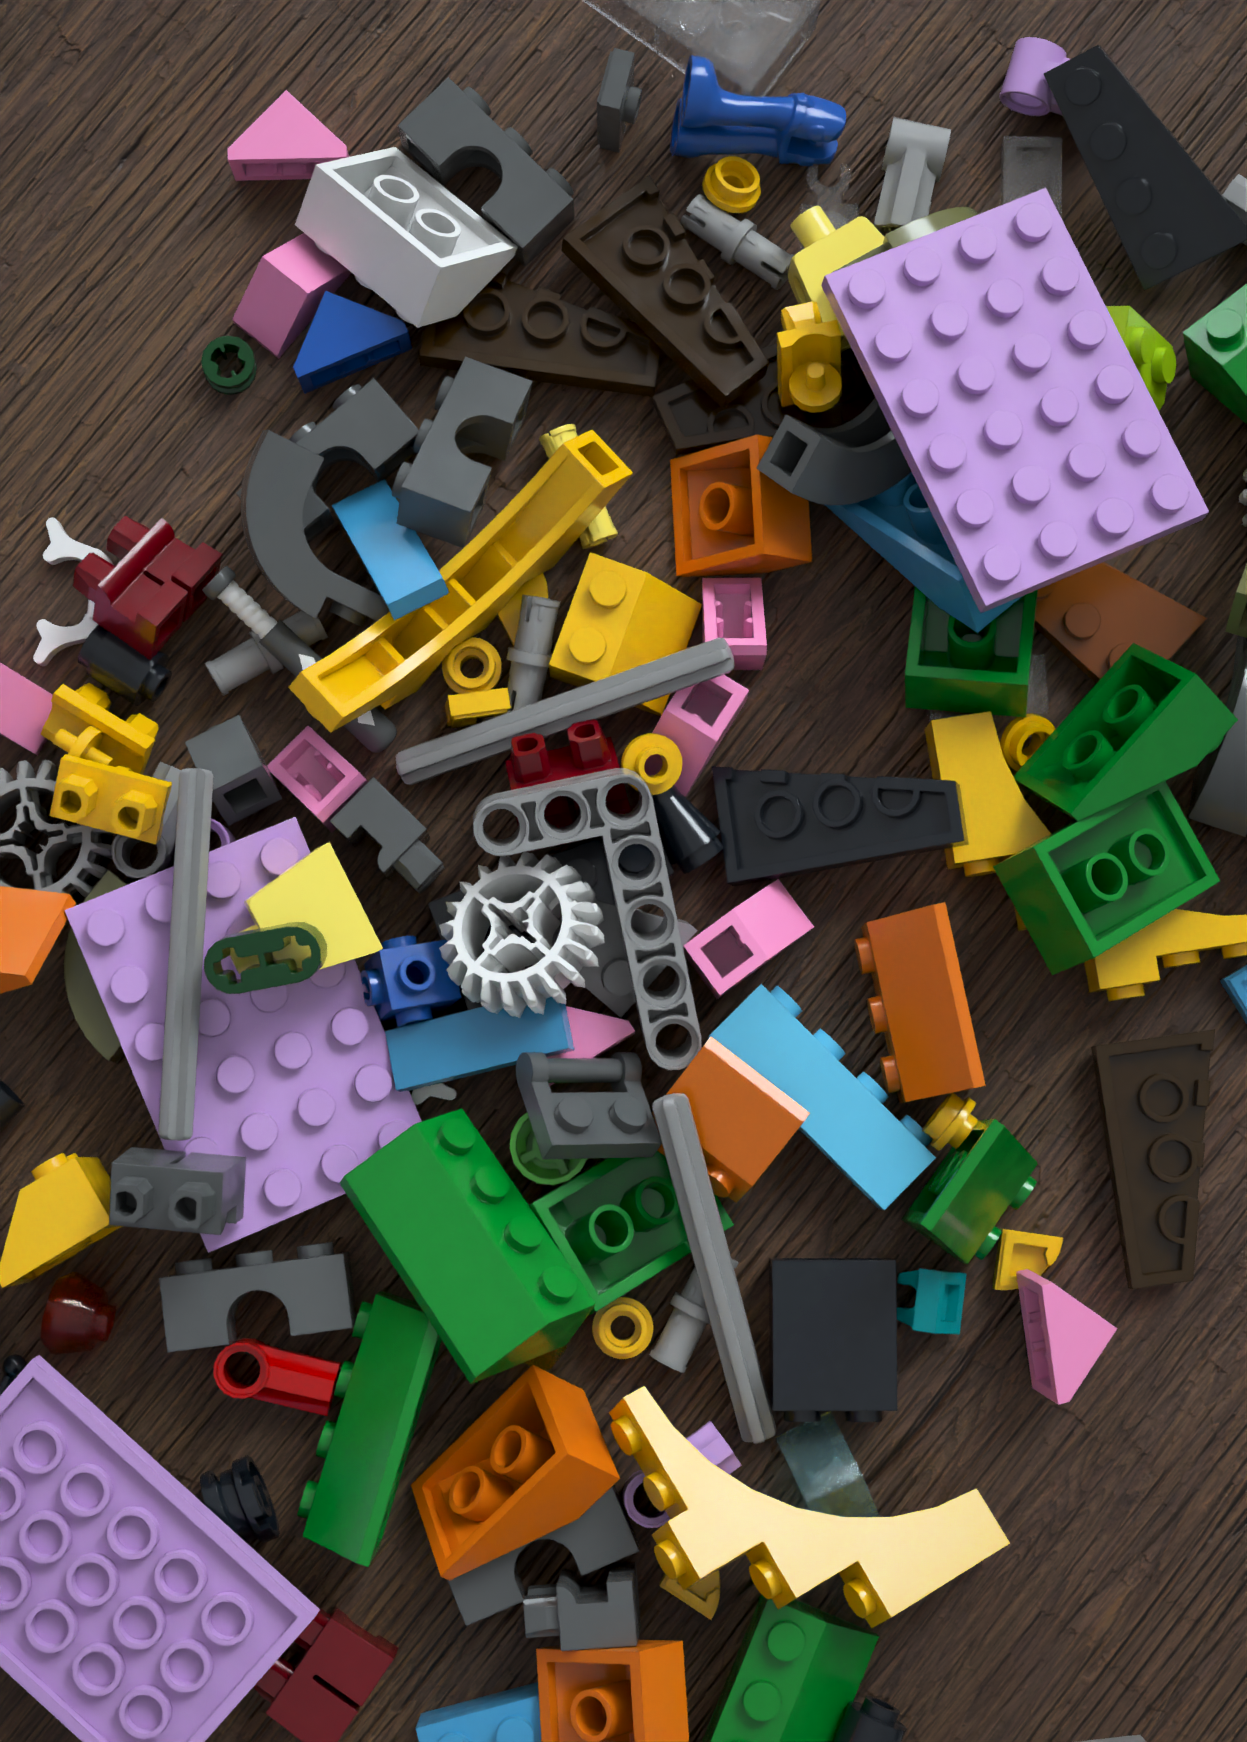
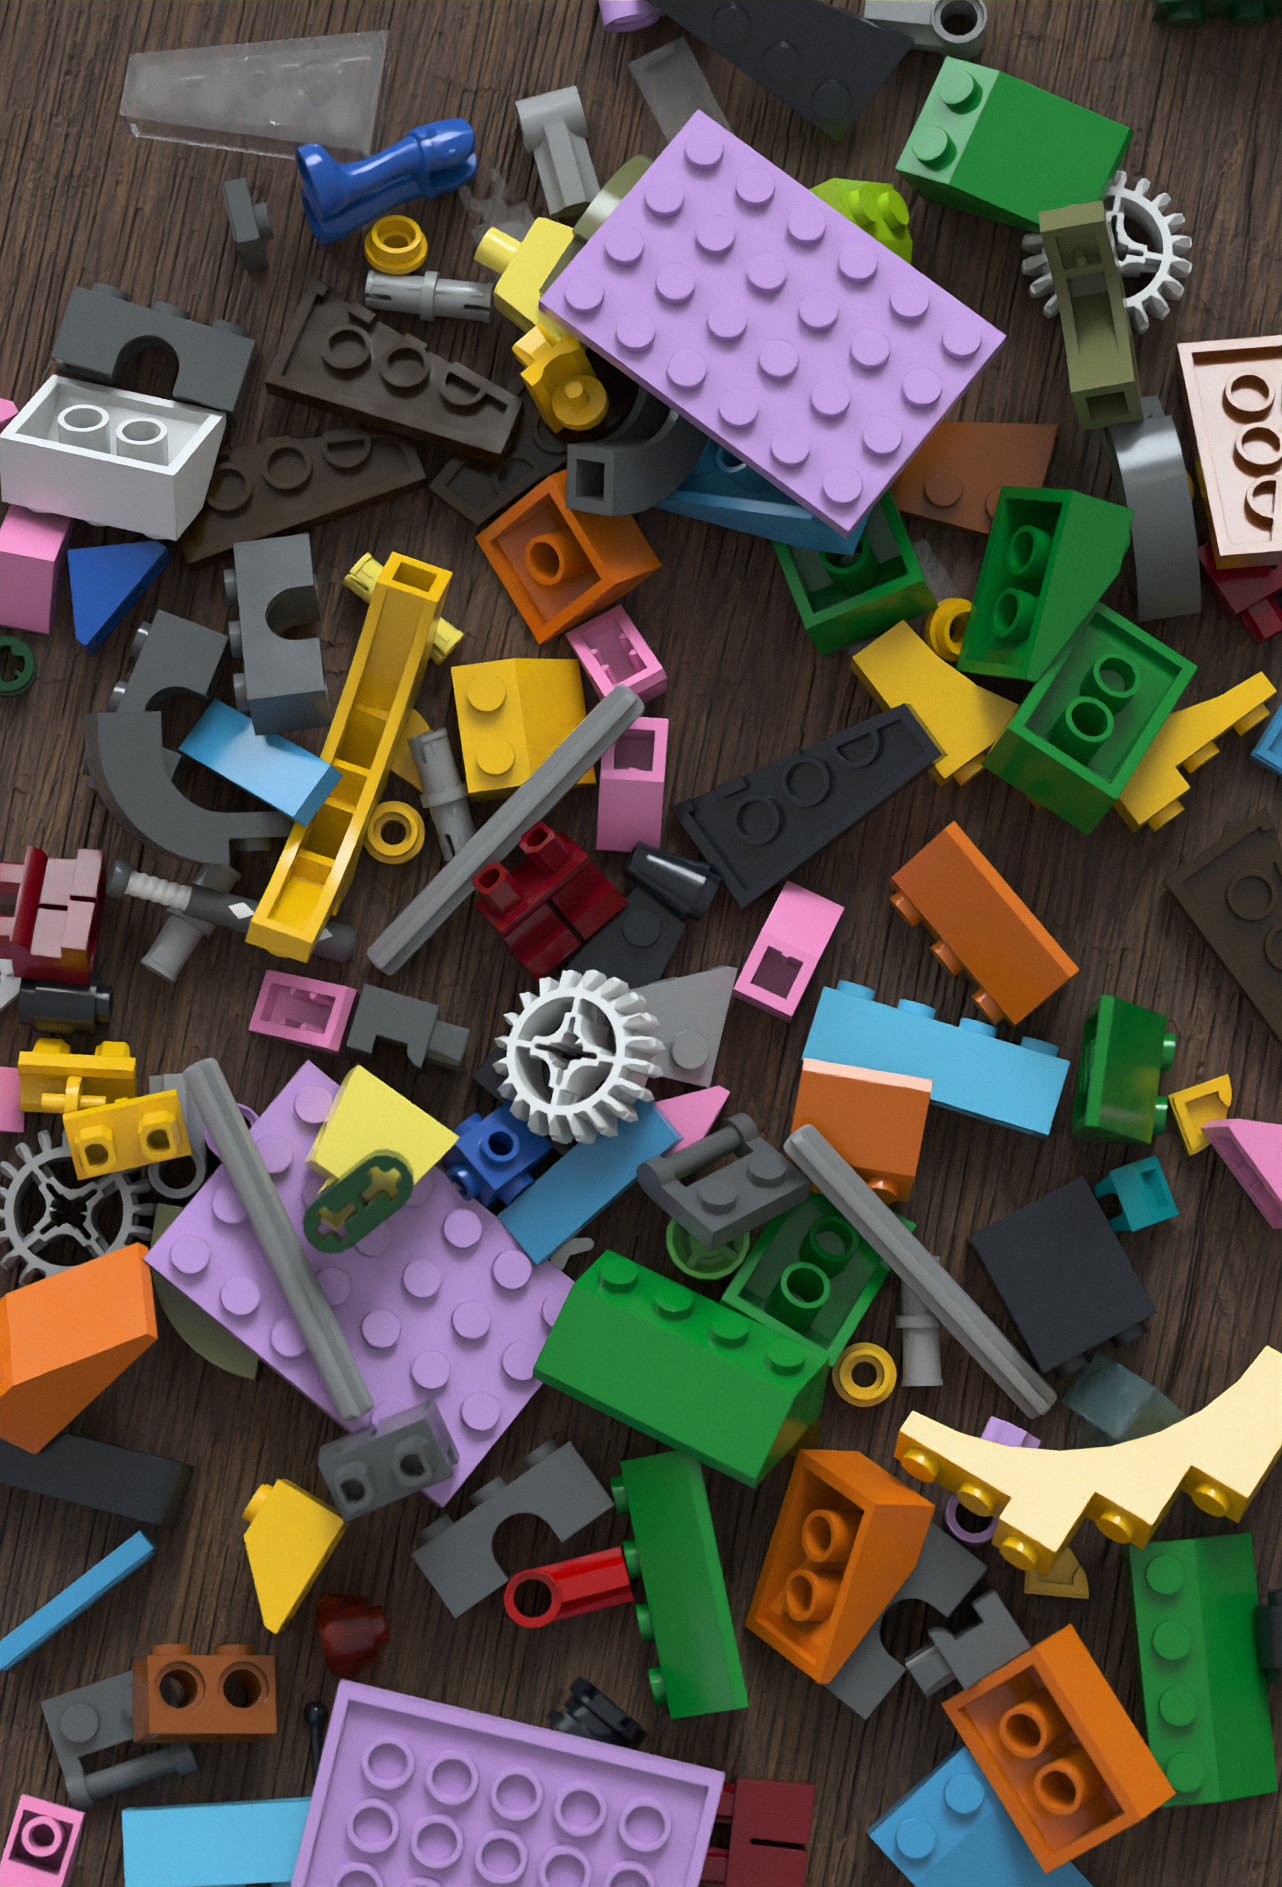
camera: 25 degrees left, 0 degrees up
(239, 770) = (216, 1033): dark grey brick -> none
(467, 707) = (410, 873): yellow tile -> none
(629, 889) = (656, 964): light grey beam -> none
(643, 747) = (596, 835): yellow plate -> none
(951, 1122) = (1067, 1021): yellow plate -> none

